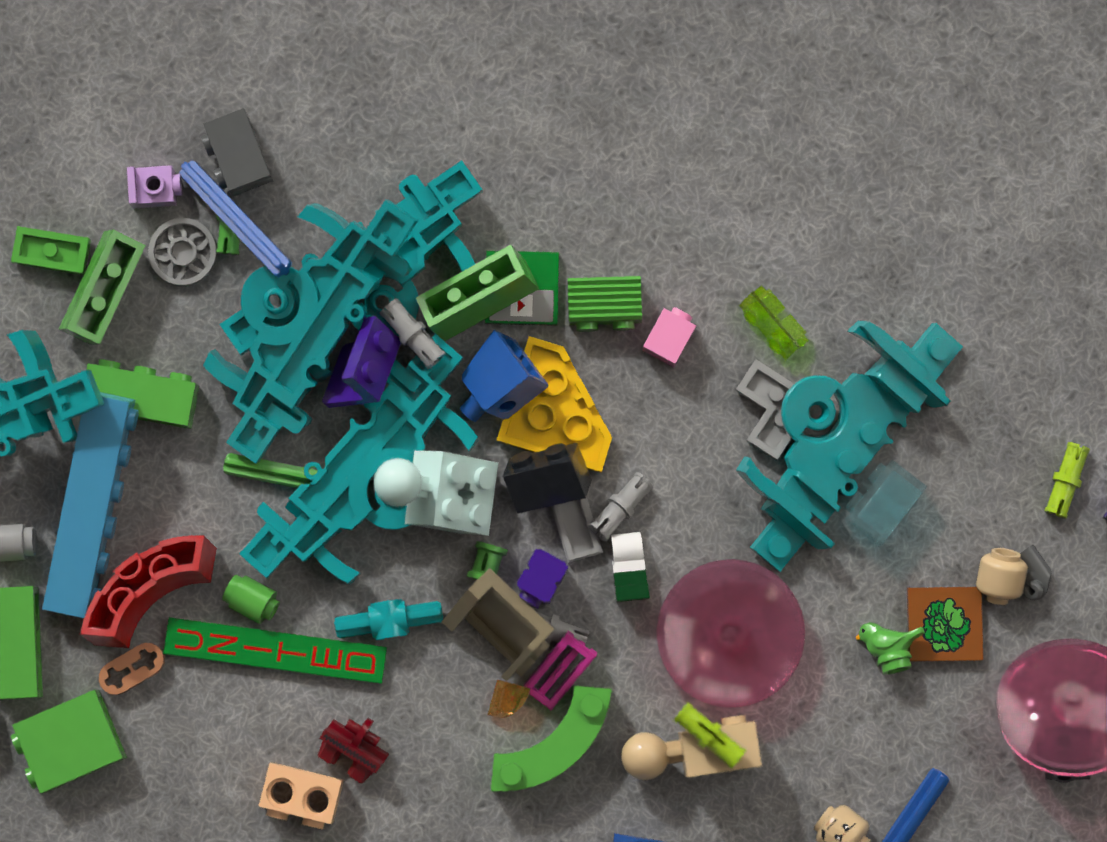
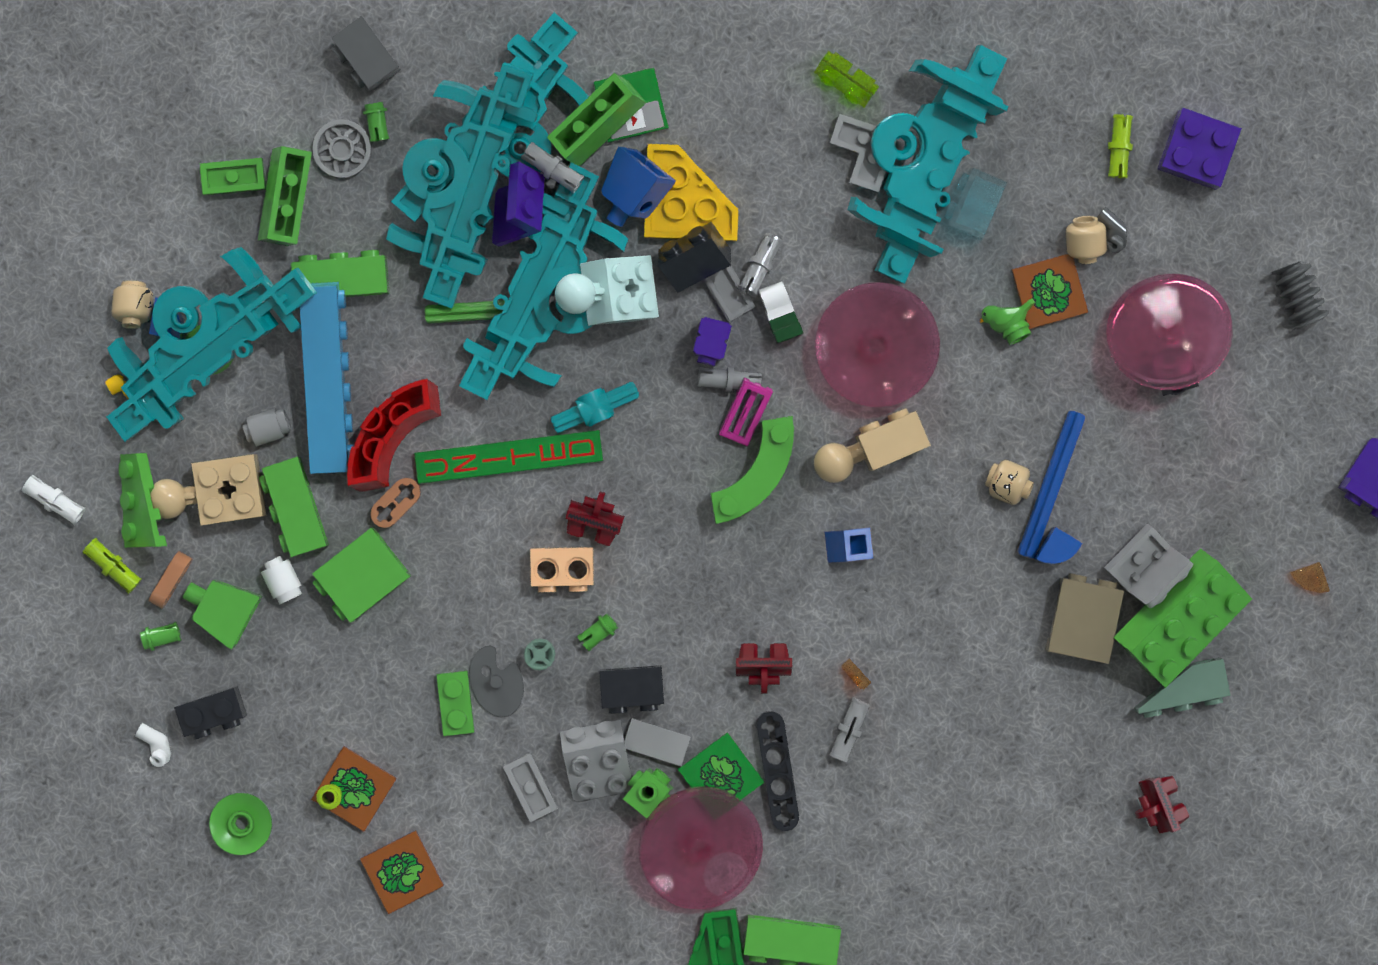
camera: 15 degrees left, 5 degrees up
(165, 195) = (296, 111): lavender brick -> none
(235, 219) = (380, 110): axle -> none
(251, 598) = (478, 420): bright green brick -> none
(487, 557) = (663, 340): bright green bush -> none
(503, 620) = (689, 384): dark tan panel -> none
(507, 699) = (709, 446): clear orange tile -> none
(604, 302) = (702, 99): bright green brick -> none
(669, 336) = (764, 113): bright pink brick -> none
(709, 735) = (882, 431): lime pin -> none

